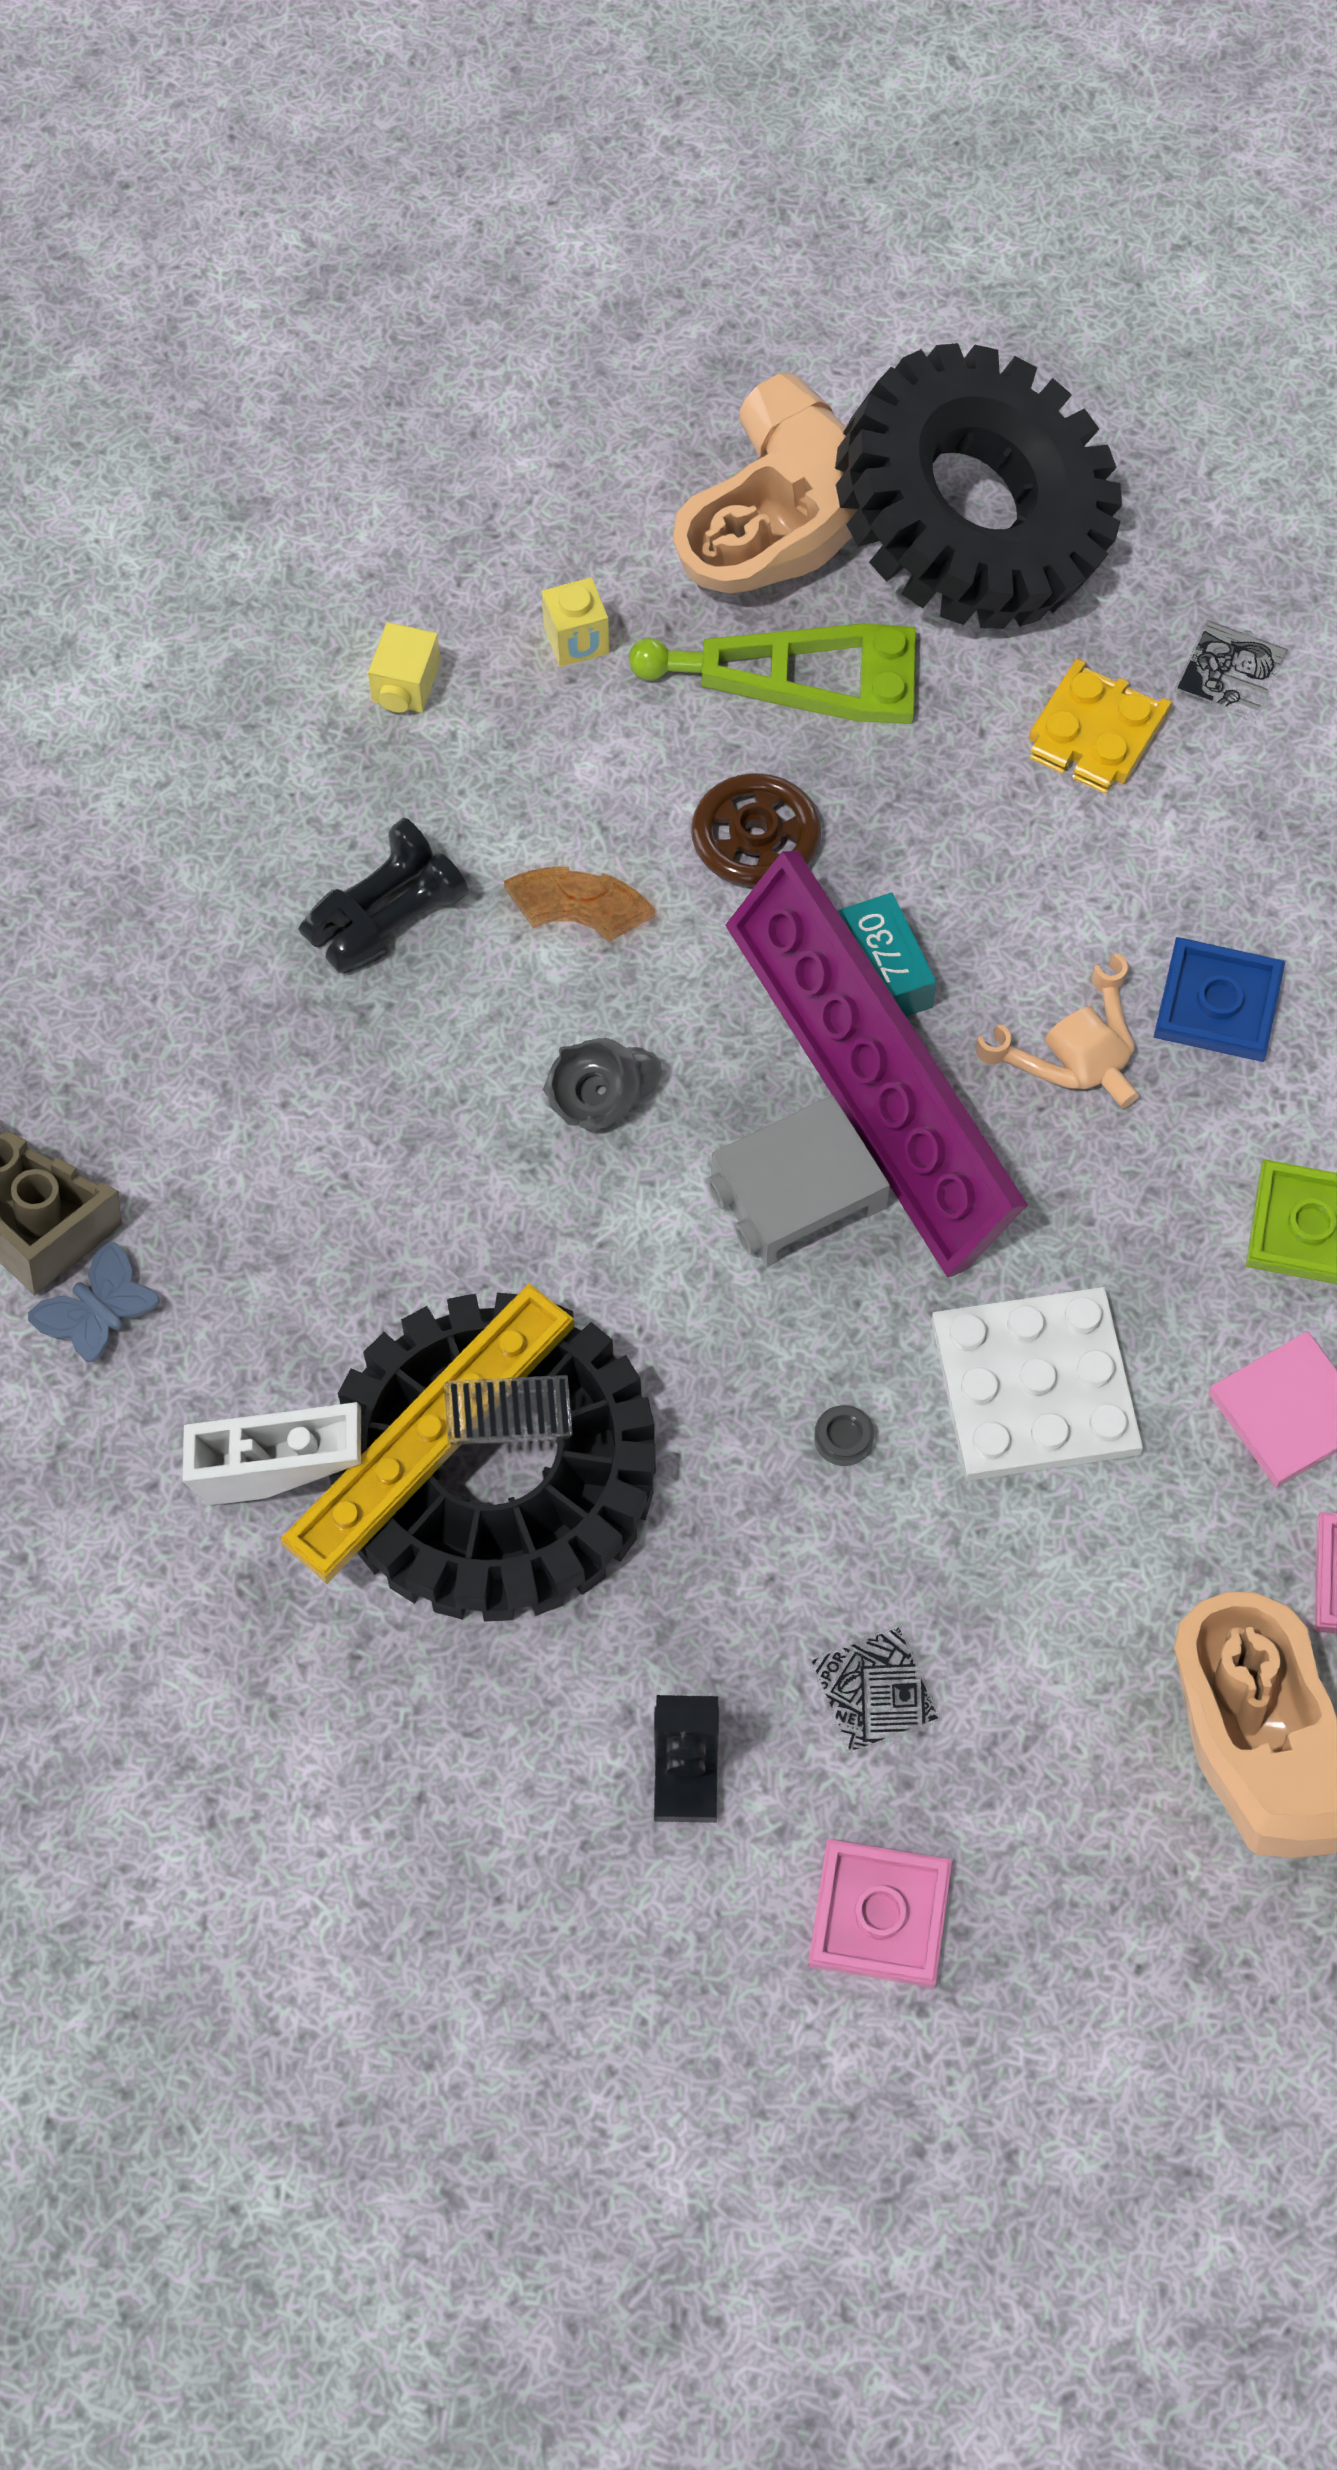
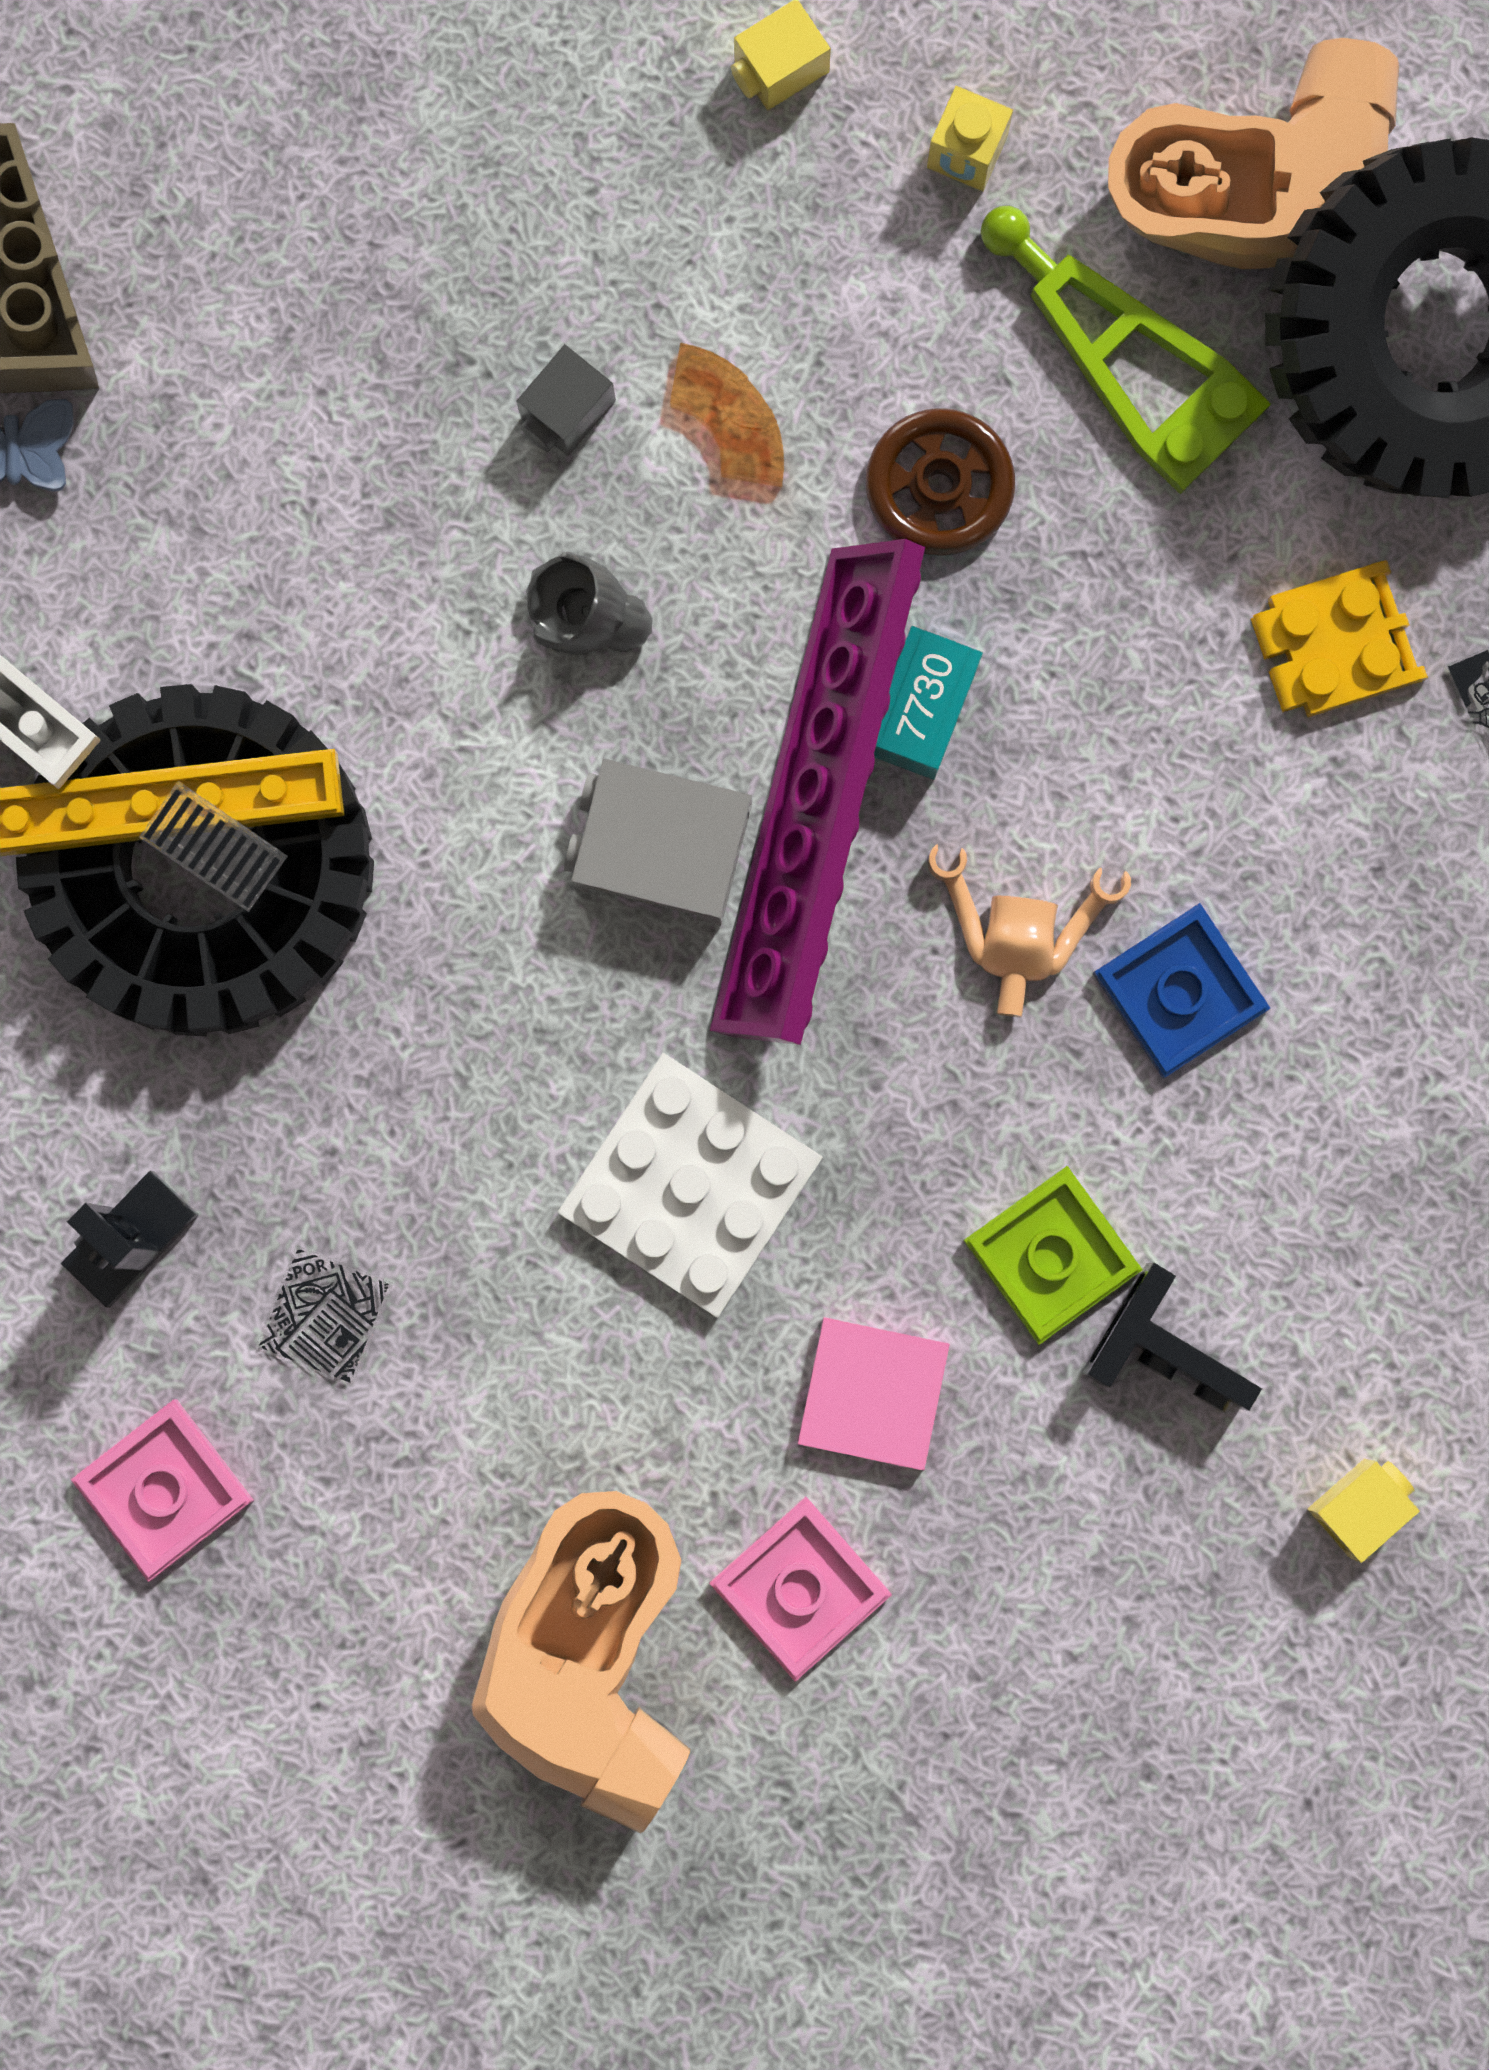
camera: 45 degrees right, 20 degrees up
(362, 941) = (519, 293): black piece -> none
(463, 970) = (564, 402): none -> dark grey brick
(844, 1435) = (496, 1089): dark grey tile -> none

